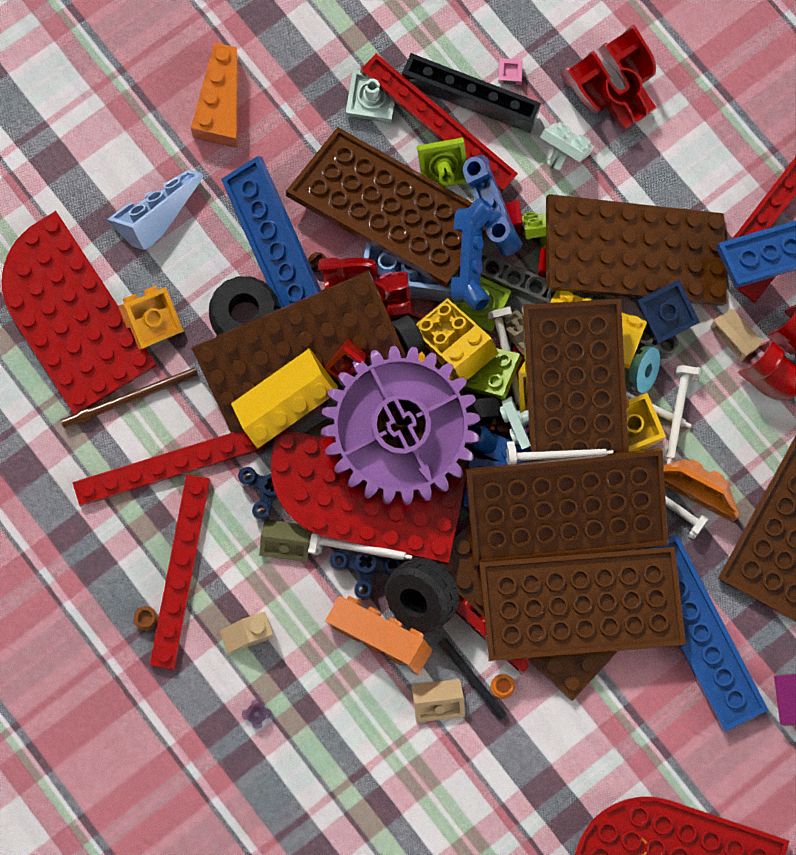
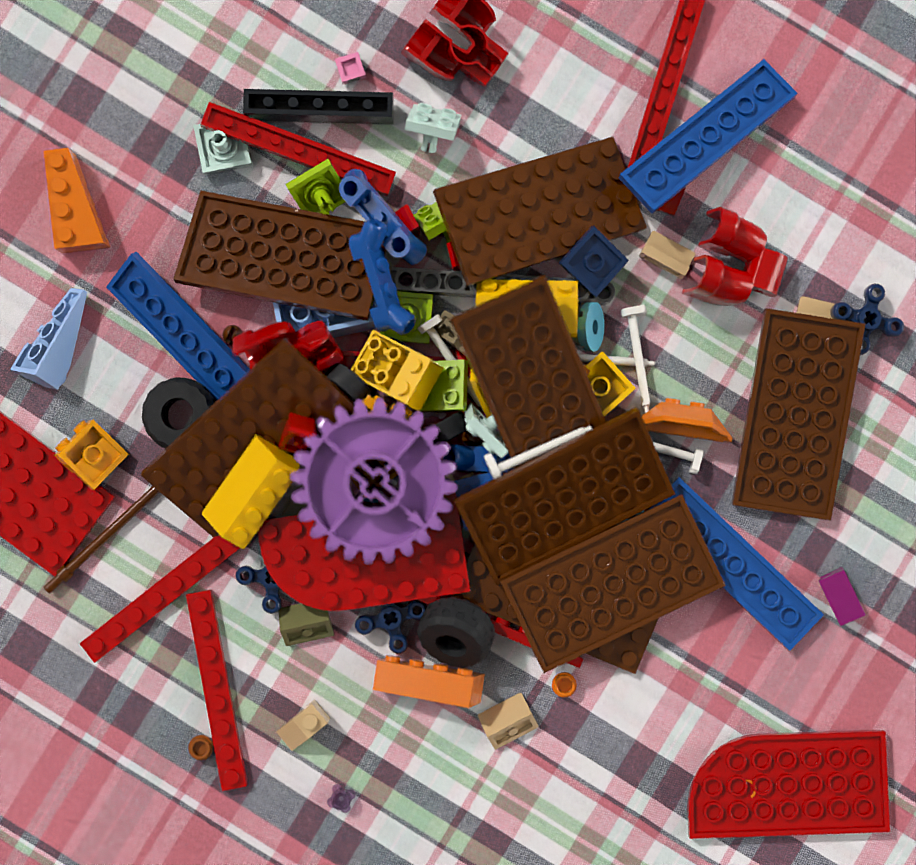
camera: 15 degrees left, 10 degrees up
(317, 543) = (337, 617): white piece -> none
(472, 678) = (533, 687): black bar -> none

